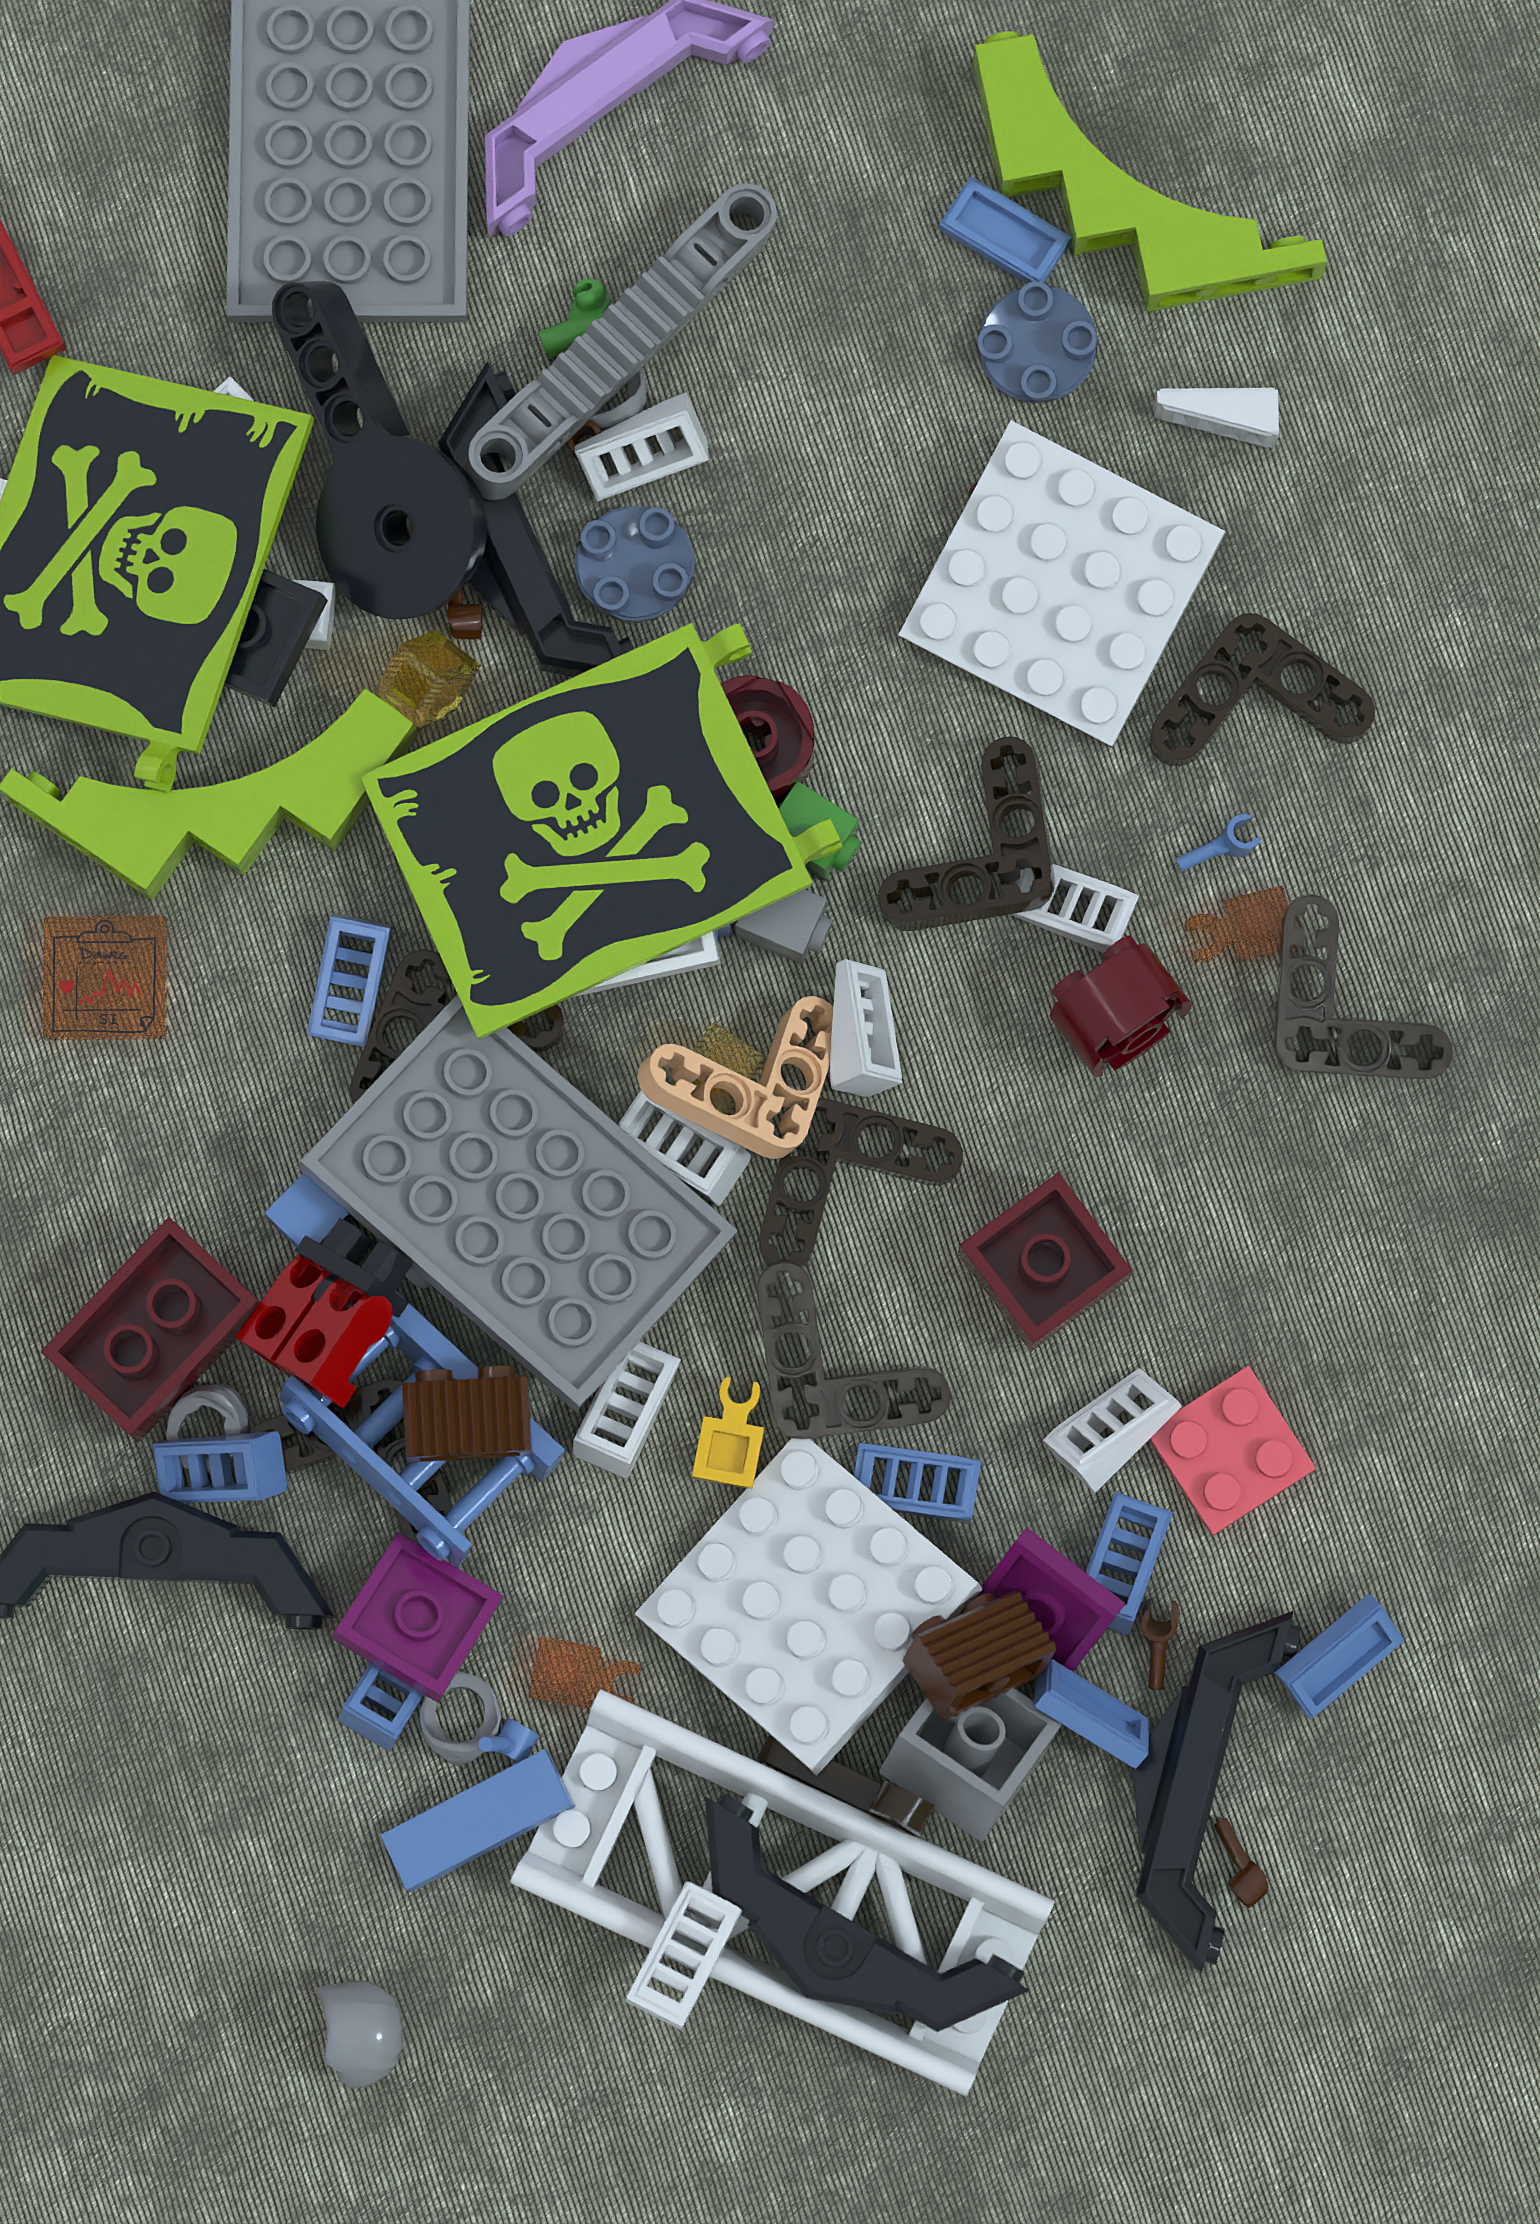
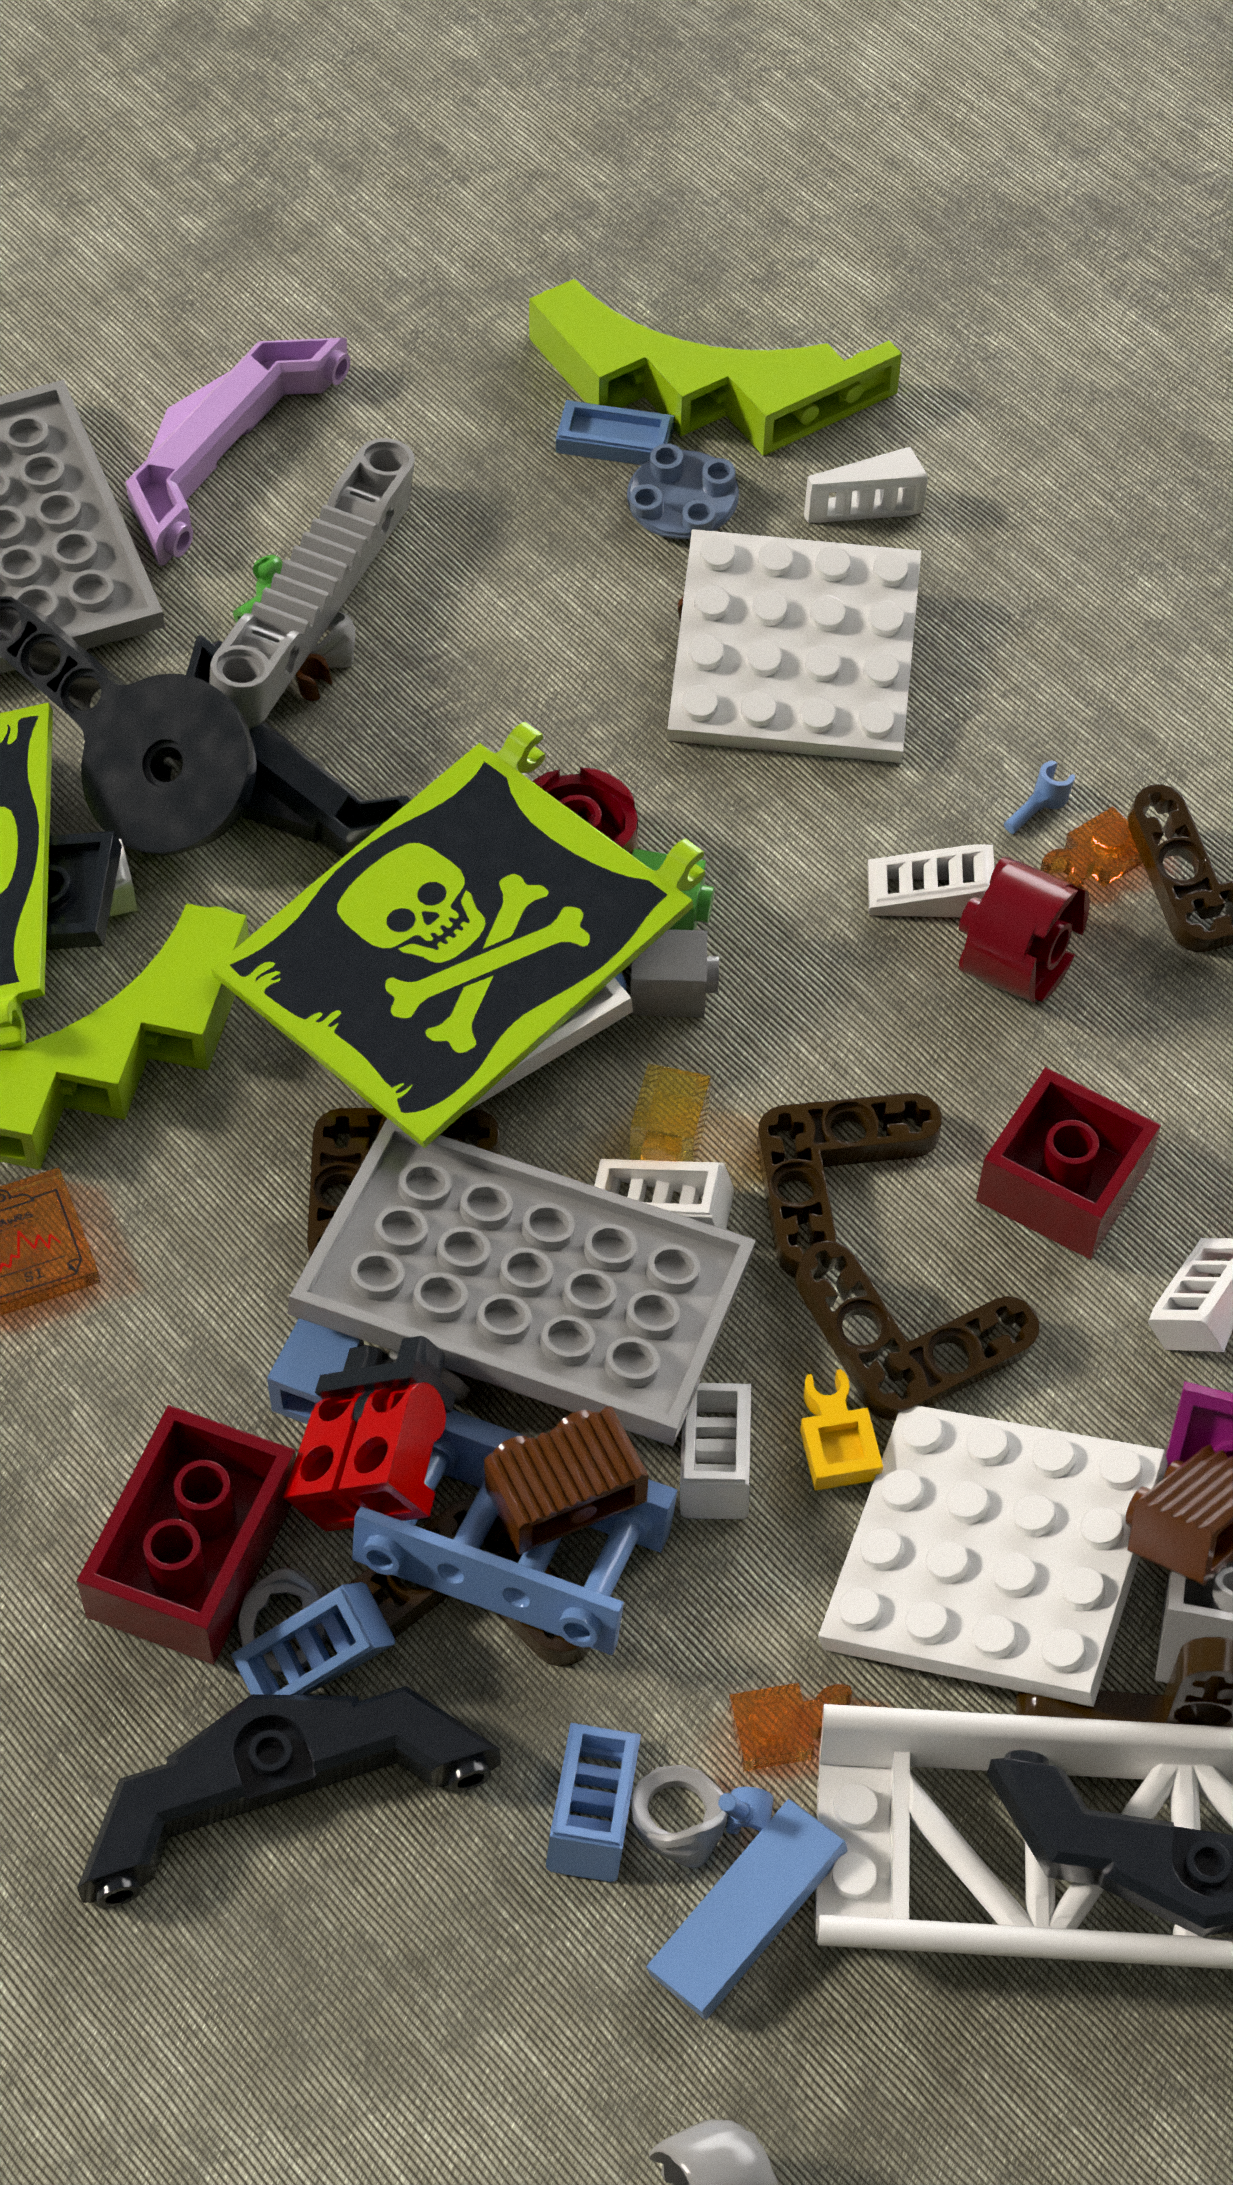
camera: 25 degrees left, 25 degrees down
(362, 929) = (263, 1116): medium blue slope -> none
(417, 1617) = (591, 1717): magenta plate -> none
(427, 678) = (243, 881): clear yellow brick -> none
(464, 619) = (256, 841): reddish brown hand -> none
(634, 563) = (397, 749): sand blue dish -> none
(635, 430) = (404, 634): white slope -> none
(708, 1907) = (1052, 1884): white slope -> none
(753, 1101) = (735, 1115): light nougat beam -> none
(863, 1032) = (796, 1046): white slope -> none
(942, 1463) = (1061, 1383): medium blue slope -> none
(1008, 856) = (851, 860): dark brown beam -> none
(1265, 672) = (1004, 661): dark brown beam -> none

